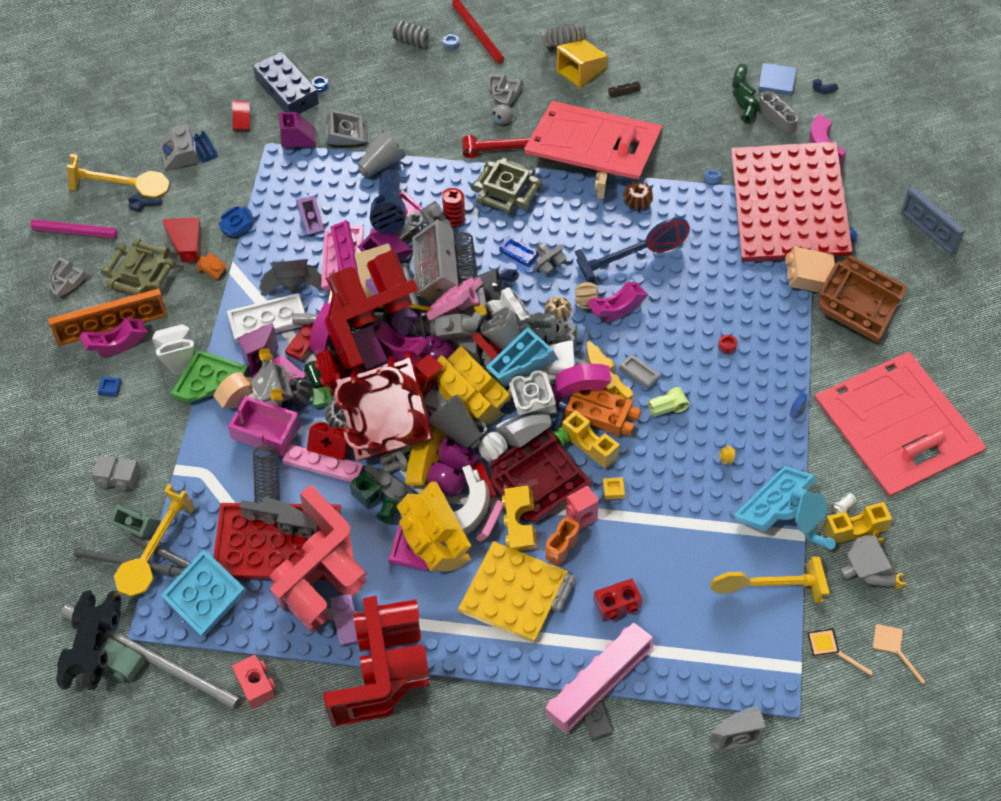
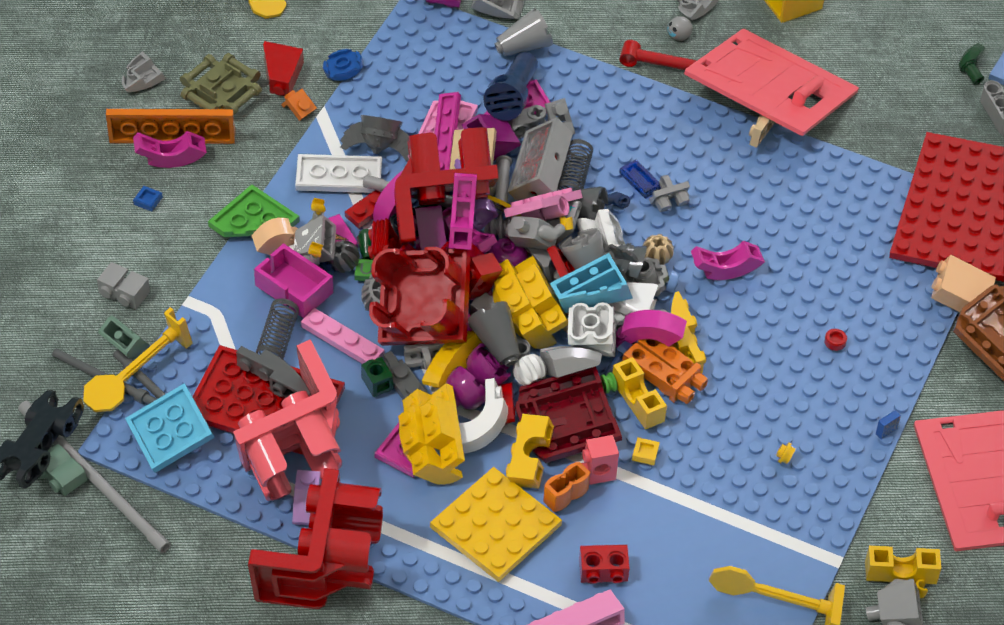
camera: 15 degrees right, 5 degrees down
(73, 228) = (167, 26): dark pink axle -> none
(136, 202) = (244, 17): dark blue bar -> none
(174, 347) = (228, 175): white piece -> none
(252, 342) = (321, 188): magenta slope -> none
(258, 692) = (191, 543): coral brick -> none
(309, 214) = (424, 78): lavender slope -> none
(328, 441) = (354, 315): red brick -> none
(387, 511) = (392, 403): dark green bush -> none
(396, 328) = (462, 211): none -> dark pink arch
(454, 206) = (584, 110): red piece -> none
(489, 521) = (496, 445): bright pink tile -> none
(506, 182) = (655, 102): olive brick -> none
(563, 592) = (548, 540): light grey axle -> none
(584, 293) = (694, 238): tan piece -> none
(624, 89) = (831, 37): dark brown axle -> none
(638, 196) = (797, 155): dark orange gear -> none
(639, 371) = (724, 340): light grey tile -> none
(660, 239) = (801, 205): dark blue piece -> none
(673, 401) = (749, 380): yellowish green piece -> none
(712, 176) = (894, 158): medium blue tile -> none
(747, 103) = (968, 88): dark green arm -> none
(785, 499) = (830, 514): medium azure plate -> none
(844, 504) = (899, 542): white pin -> none

